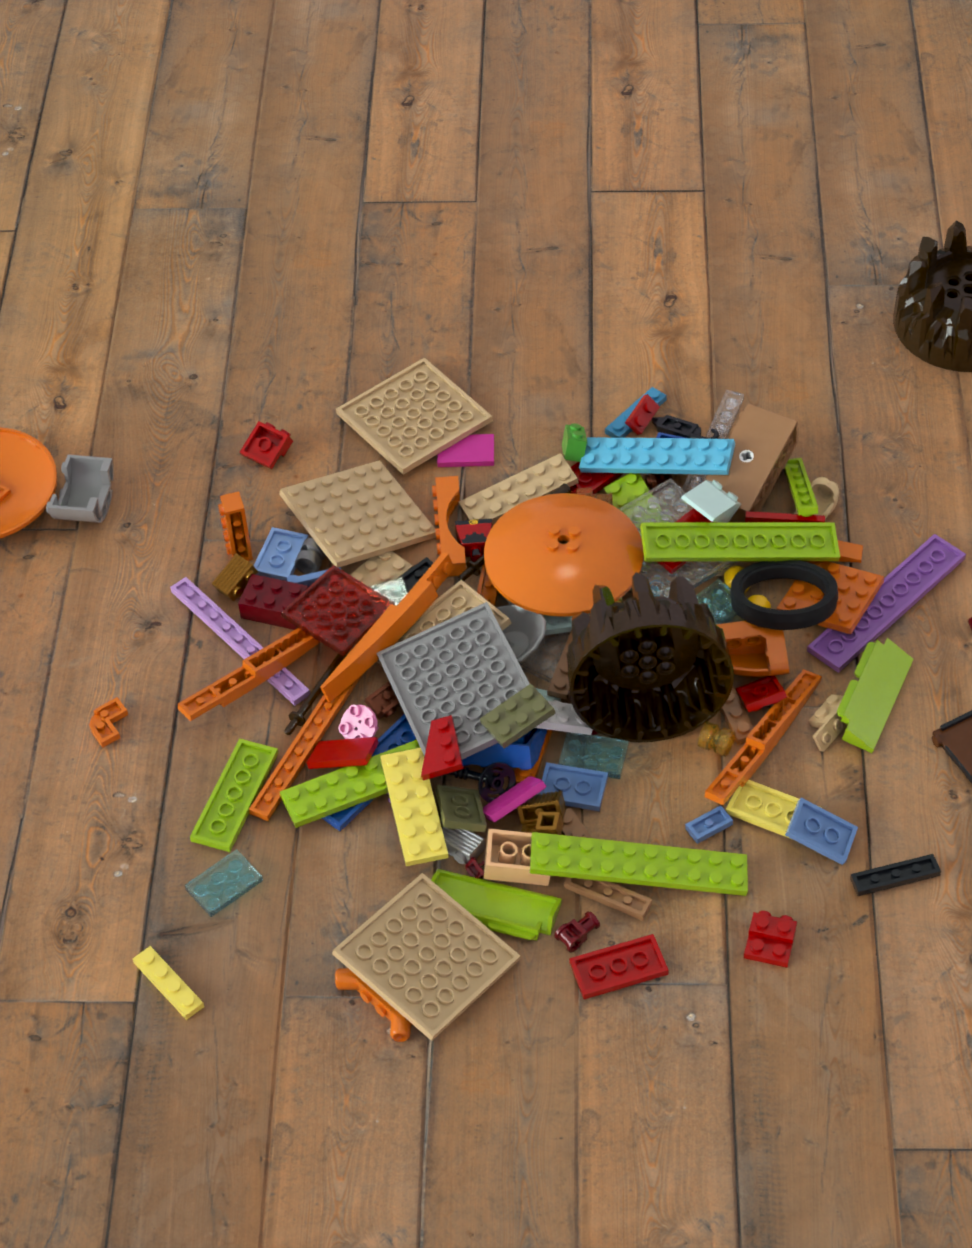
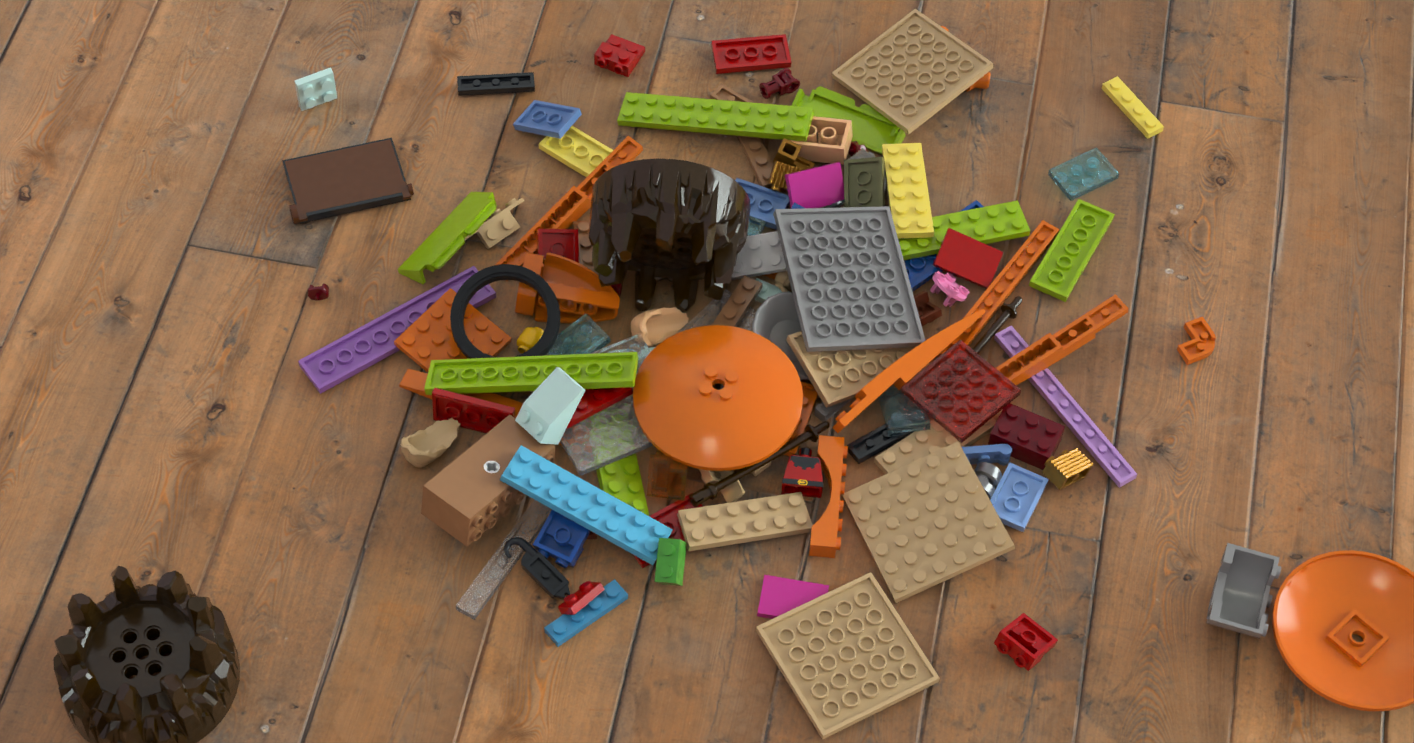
camera: 175 degrees left, 5 degrees up
(235, 525) = (1066, 494): orange brick -> none
(442, 749) = (875, 213): red wing -> none
(517, 716) = (801, 214): olive plate -> none
(709, 824) = (651, 149): medium blue plate -> none
(800, 487) = (443, 429): lime plate -> none

